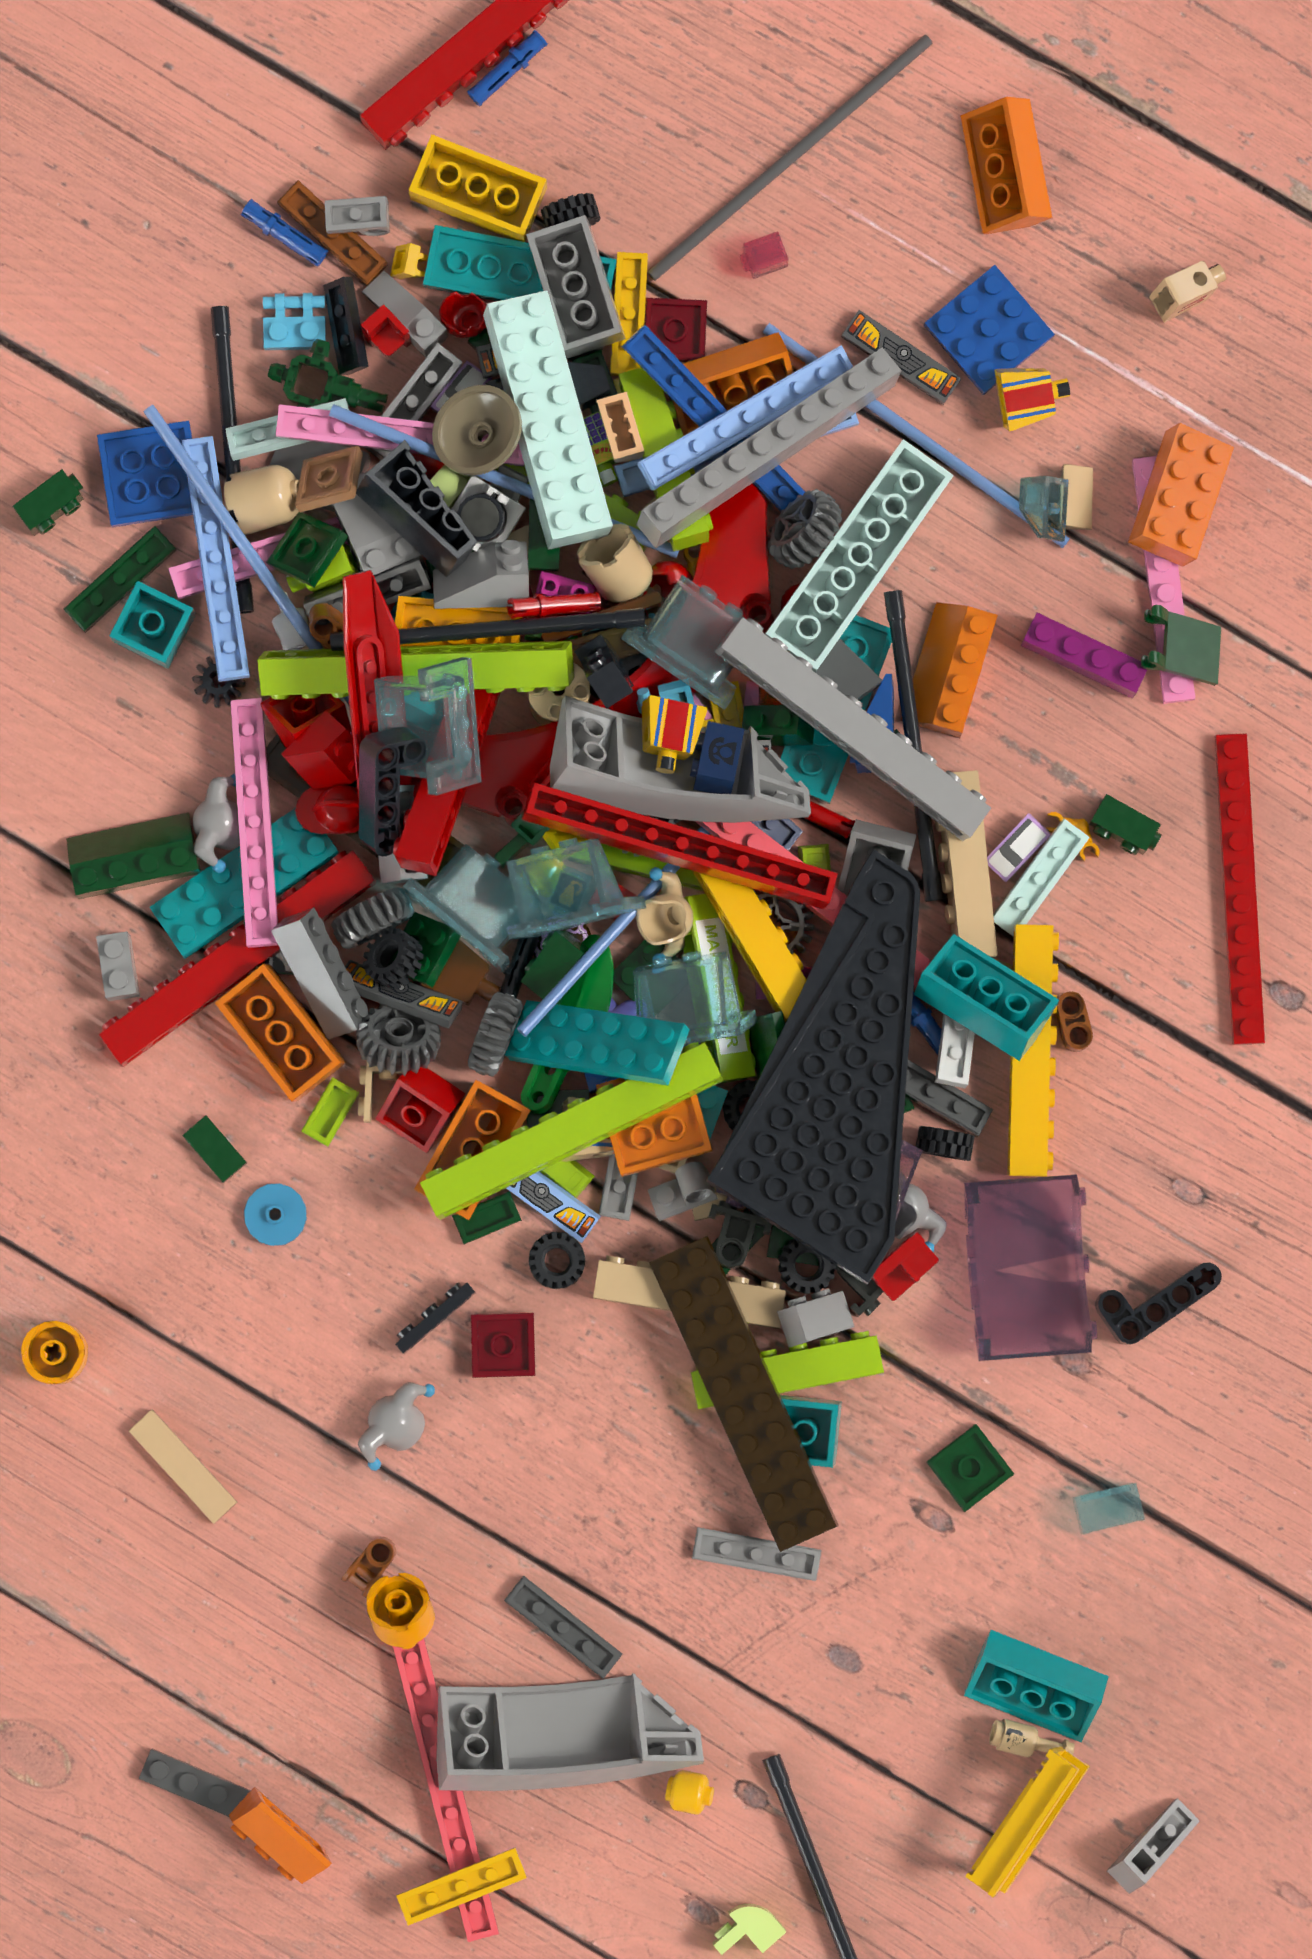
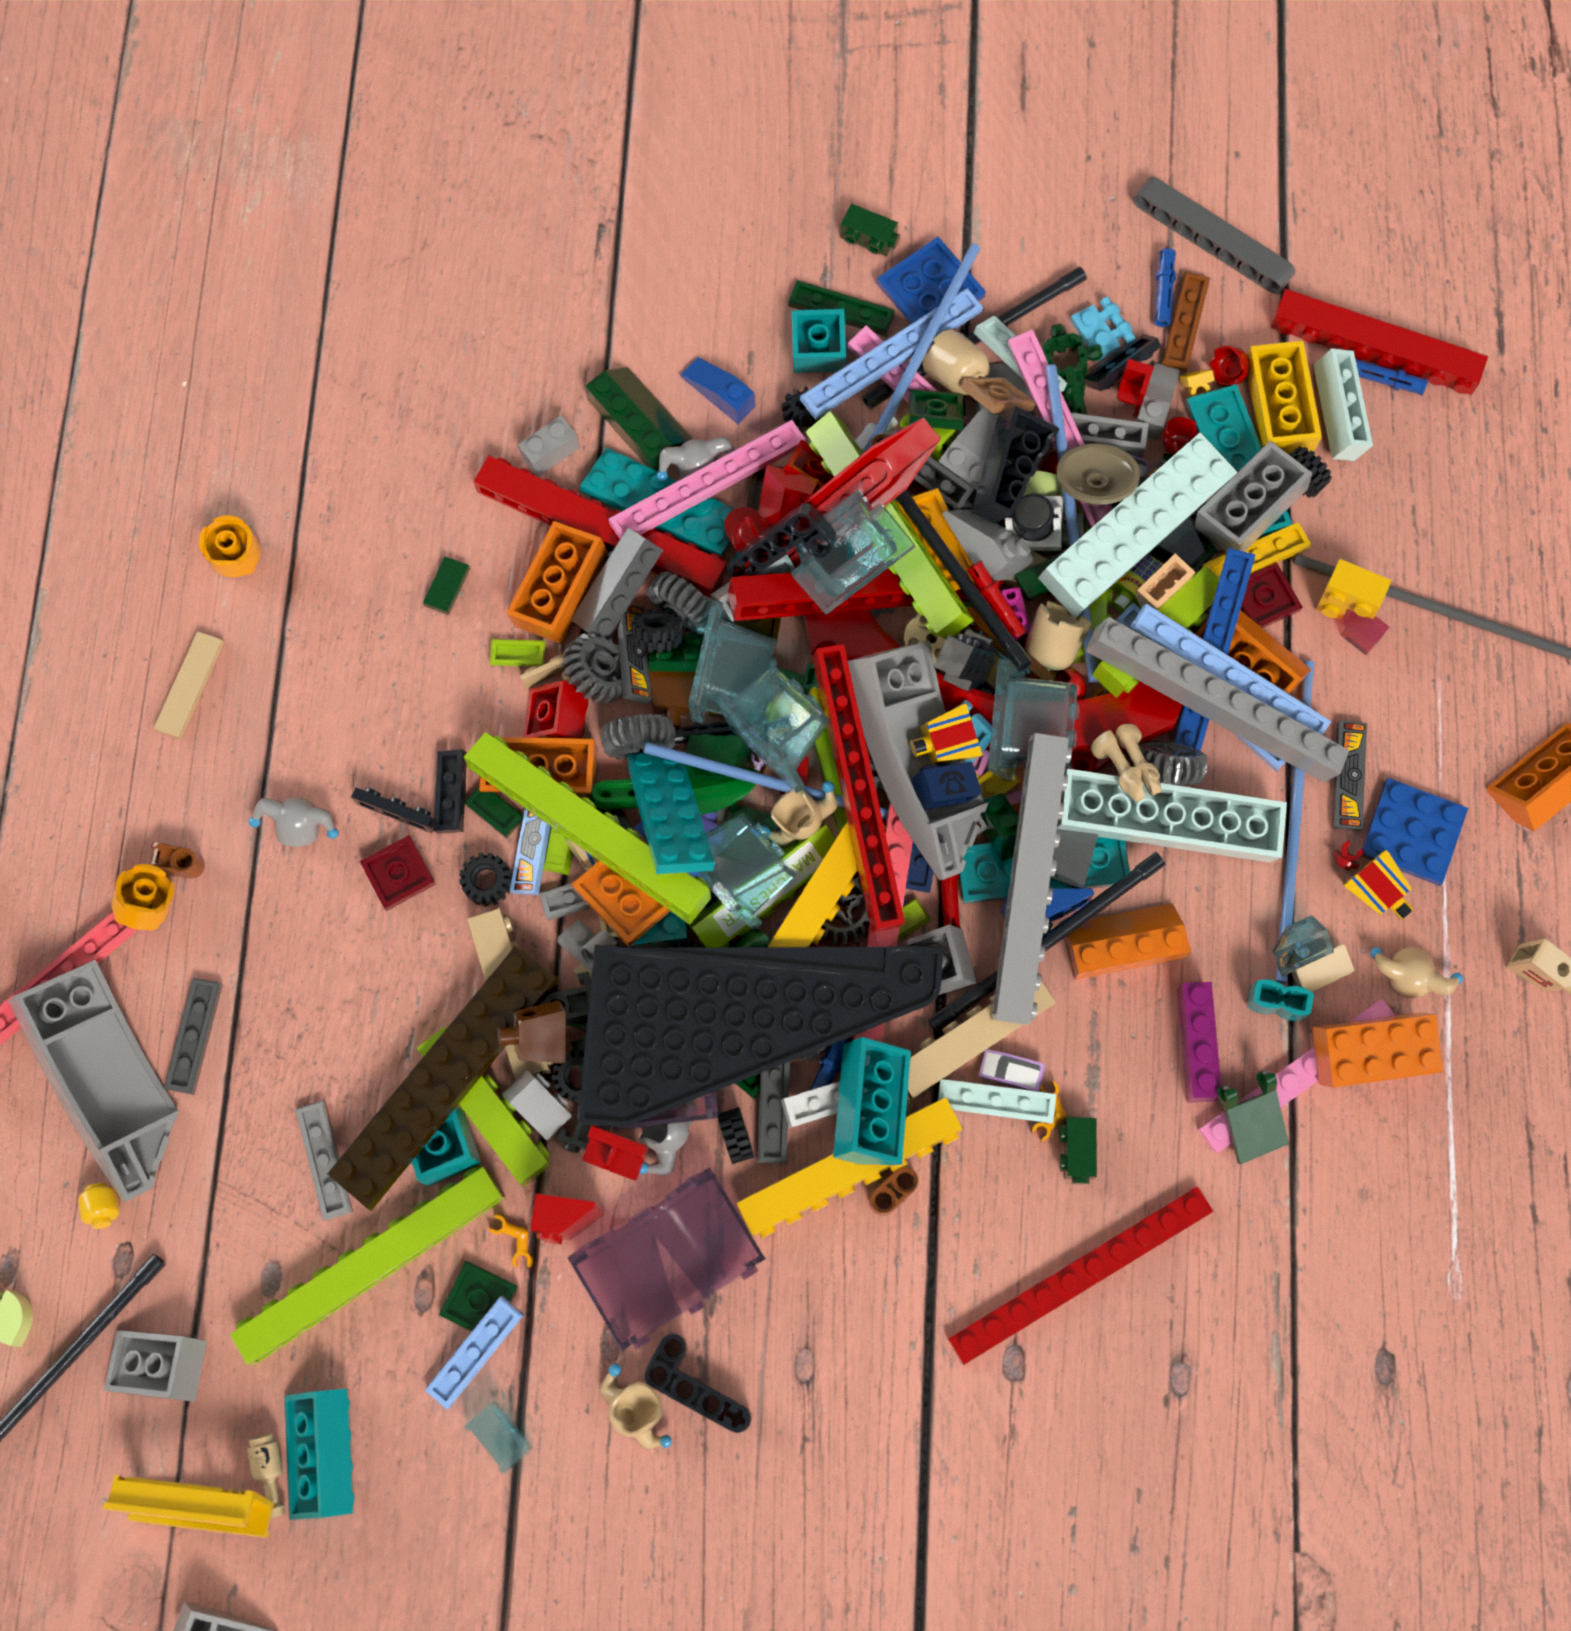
camera: 70 degrees right, 10 degrees down
(144, 756) = (720, 389): none -> blue slope
(252, 148) = (1214, 235): none -> dark grey beam
(292, 1217) = (420, 666): dark azure plate -> none
(360, 215) = (1210, 326): light grey plate -> none
(411, 219) = (1229, 365): none -> red hair
(445, 1251) = (450, 791): none -> black plate
(517, 133) = (1343, 405): none -> light aqua brick
(723, 245) = (1354, 590): none -> yellow brick
(752, 1280) = (538, 1033): none -> reddish brown torso
(807, 577) = (1130, 777): none -> tan piece
(873, 1805) = (155, 1365): none -> light grey slope
(884, 1556) = (367, 1266): none -> lime brick
(927, 1397) = (521, 1235): none -> light orange arm
(941, 1345) = (562, 1217): none -> red slope
(982, 412) = (1347, 860): none -> red plate
(1018, 1493) = (474, 1352): none -> light blue tile
(1091, 552) = (1289, 1002): none -> teal brick
(1126, 414) = (1414, 973): none -> tan piece
(1149, 1369) = (633, 1410): none -> tan piece

